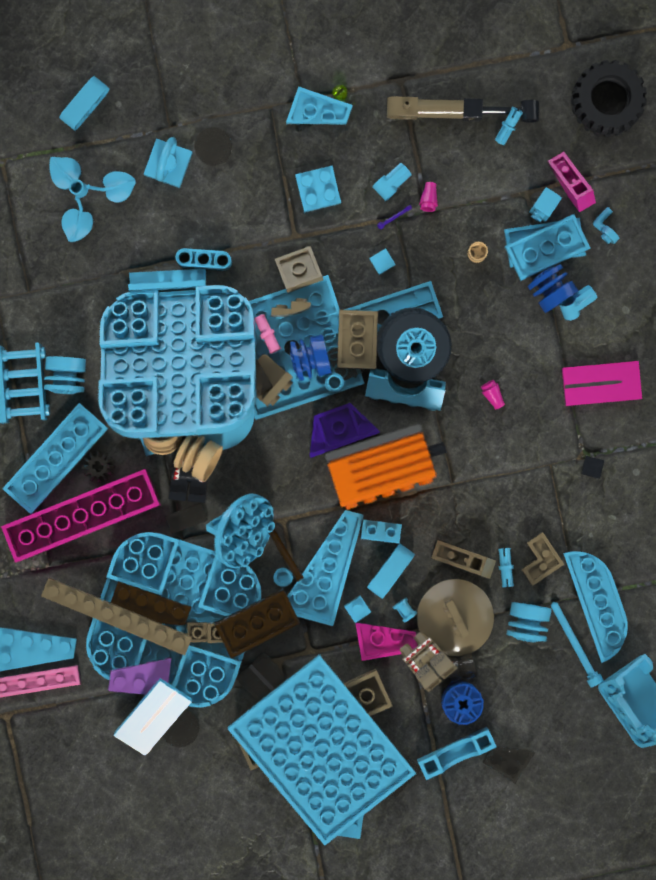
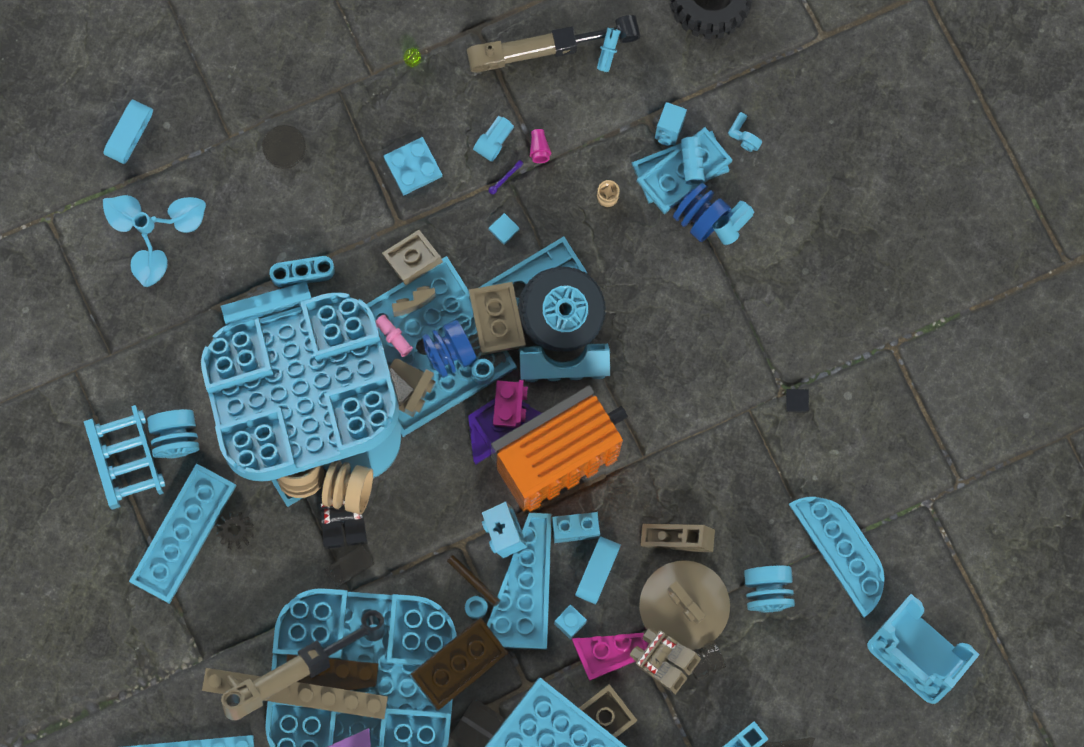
camera: 15 degrees left, 10 degrees down
(81, 515) = (227, 590): dark pink brick -> none
(133, 595) = (310, 661): none -> dark tan piece
(168, 162) = (237, 175): medium azure tile -> none
(203, 632) = (399, 689): dark tan slope -> none
(242, 530) = (417, 559): medium azure bracket -> none
(317, 109) = (392, 79): medium azure wing -> none
(327, 526) = (503, 530): none -> medium azure brick
(350, 414) = (508, 404): none -> dark pink bracket
(405, 610) = (625, 610): medium azure bush -> none
(460, 691) = (704, 705): blue wheel -> none
(493, 394) = (663, 344): dark pink cone -> none
(506, 567) = (728, 536): medium azure pin -> none
(546, 561) = (772, 517): dark tan plate -> none
(556, 242) = (692, 160): none -> medium azure axle
(572, 182) = (694, 94): dark pink slope -> none
(593, 677) = (859, 636): medium azure piece -> none
(602, 383) = (783, 306): dark pink tile -> none

